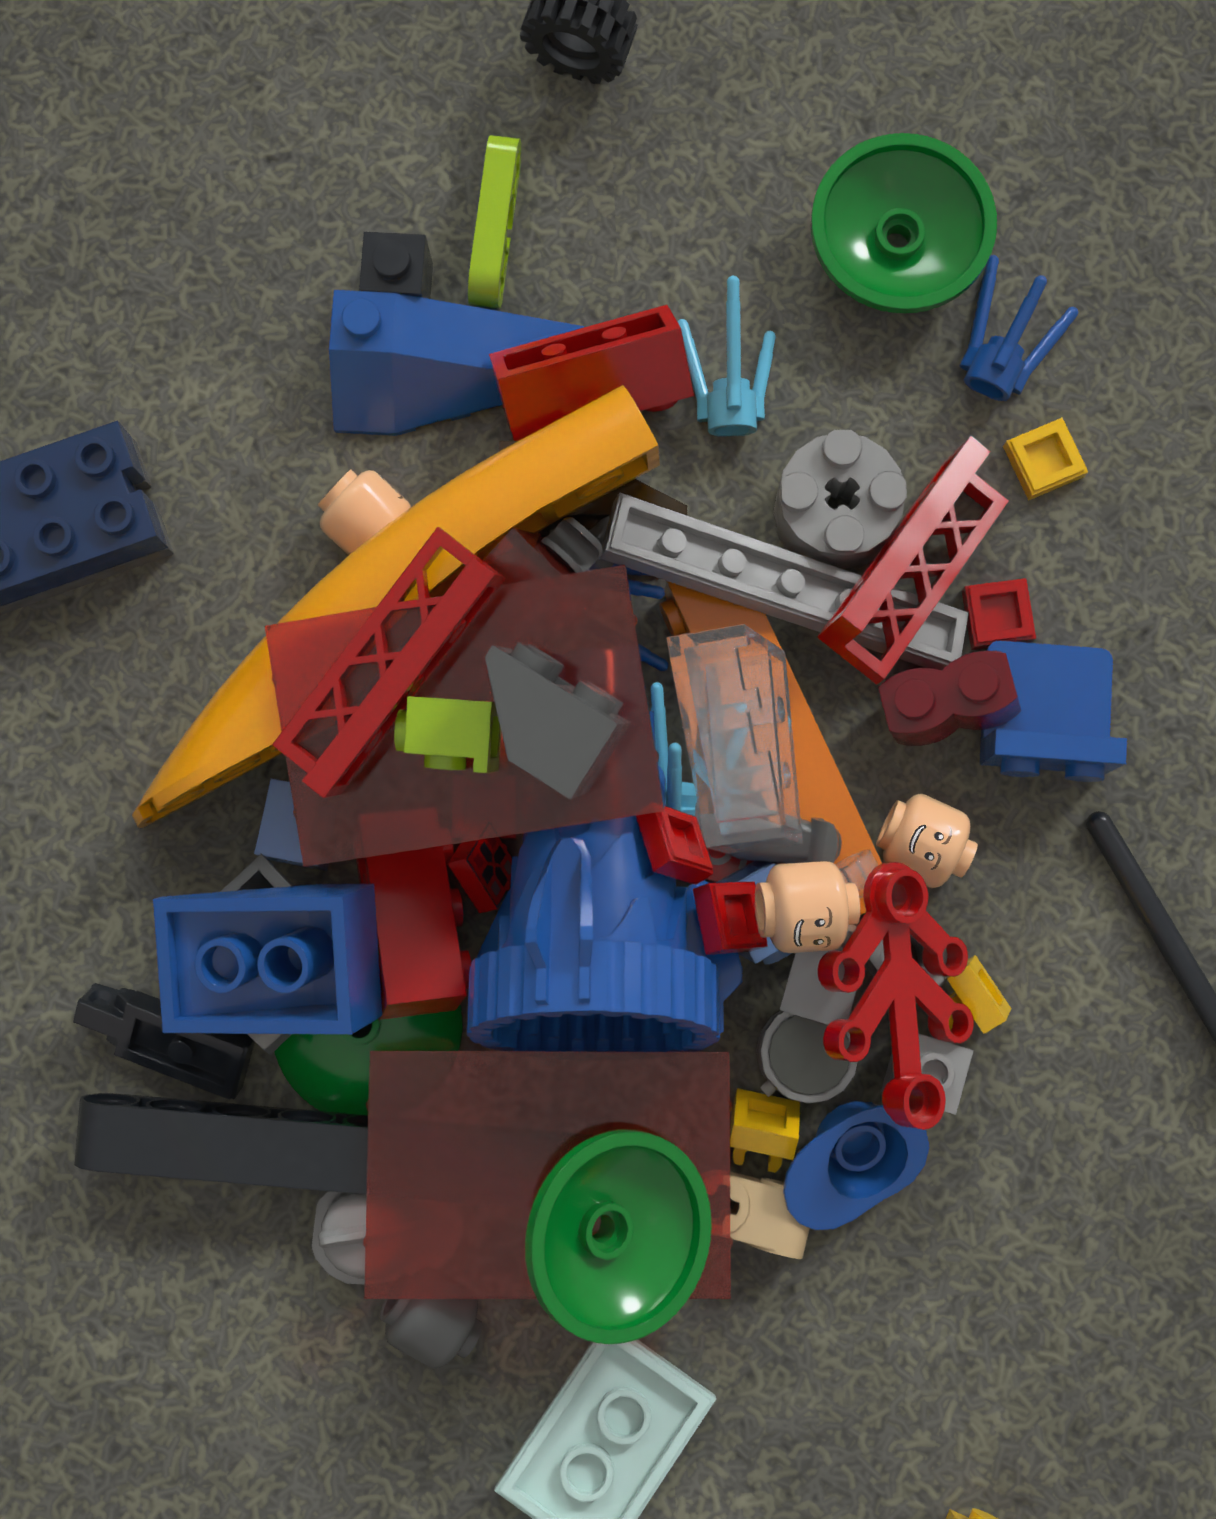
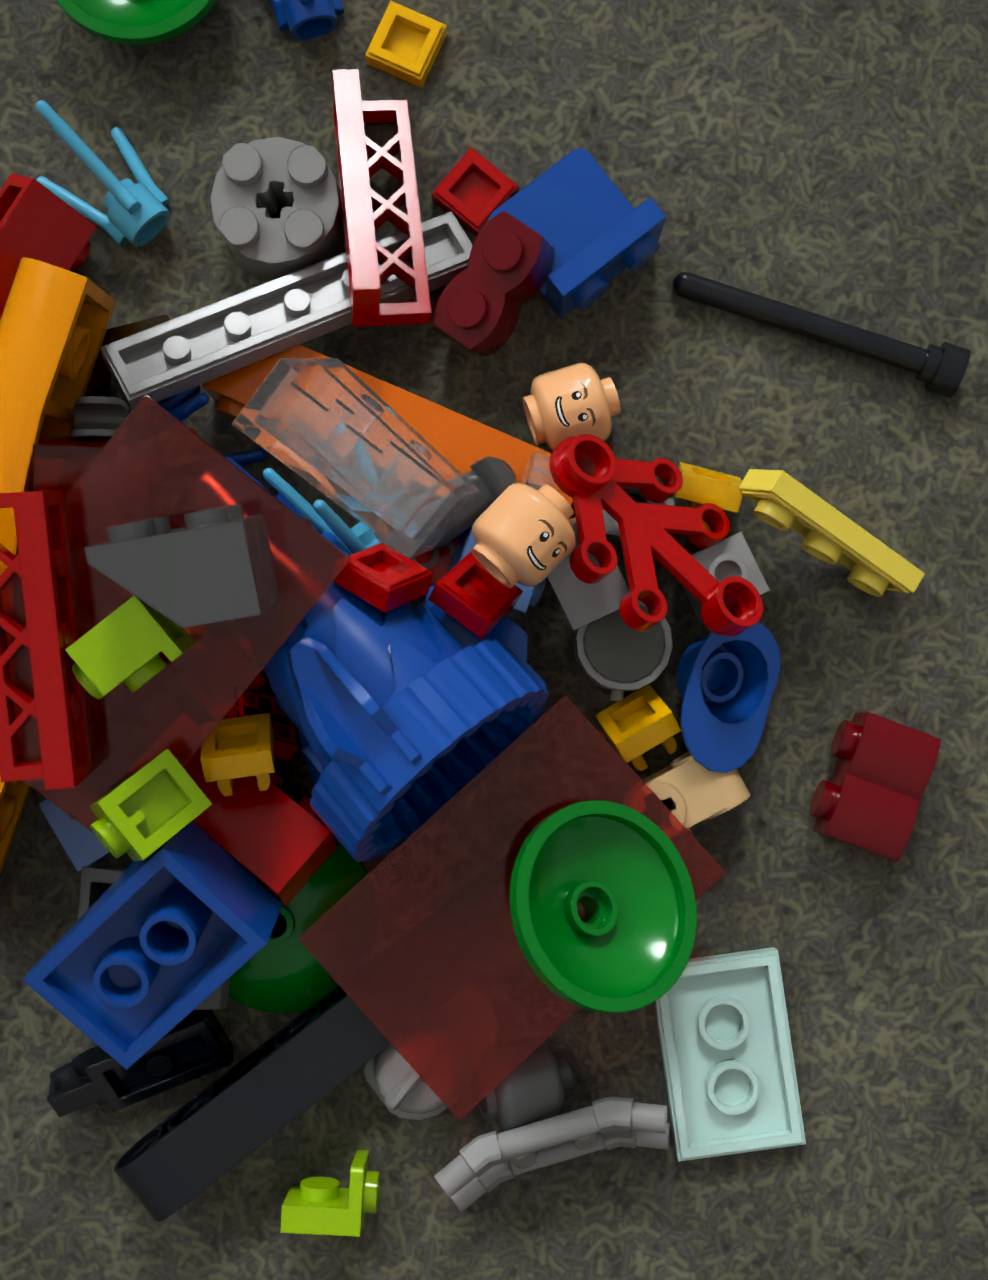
camera: 40 degrees left, 5 degrees up
(201, 1273) = (325, 1209): none -> lime bracket
(356, 858) = (148, 808): none -> lime bracket
(456, 874) = (239, 750): none -> yellow tile
(463, 1406) = (503, 1155): none -> light grey piece
(905, 1339) = (874, 784): none -> dark red brick
(1040, 1114) = (828, 533): none -> light yellow tile

